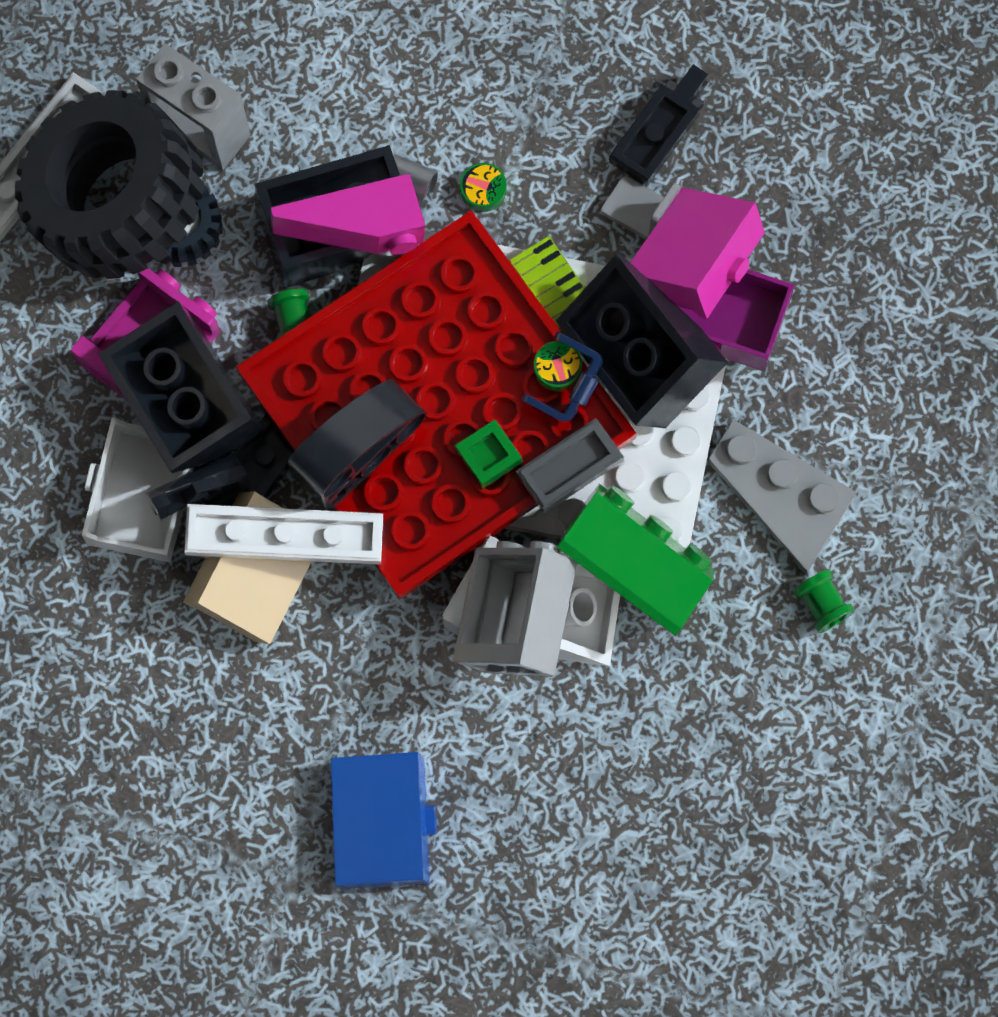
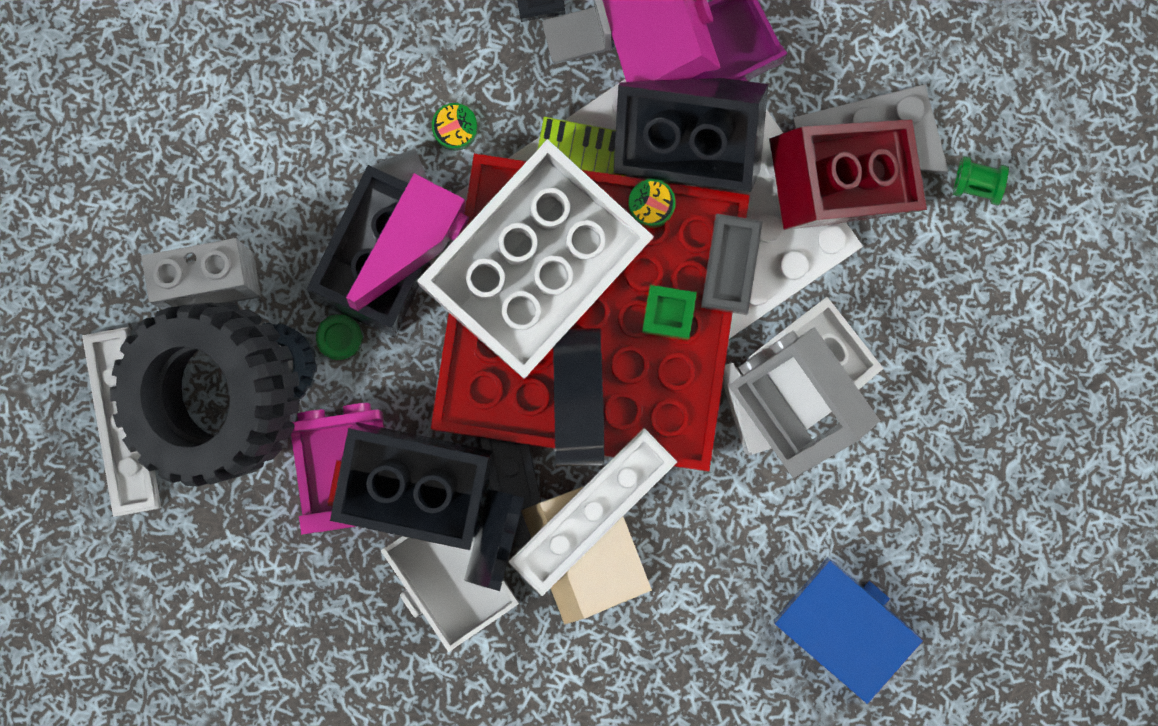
camera: 55 degrees left, 10 degrees up
(245, 250) = (339, 337): none -> green tile
(289, 309) = (421, 351): green bush -> none
(428, 312) = (535, 259): none -> white slope
(583, 388) = (687, 203): dark blue piece -> none
(637, 557) = (840, 281): green slope -> none
(726, 491) = (847, 173): none -> dark red slope

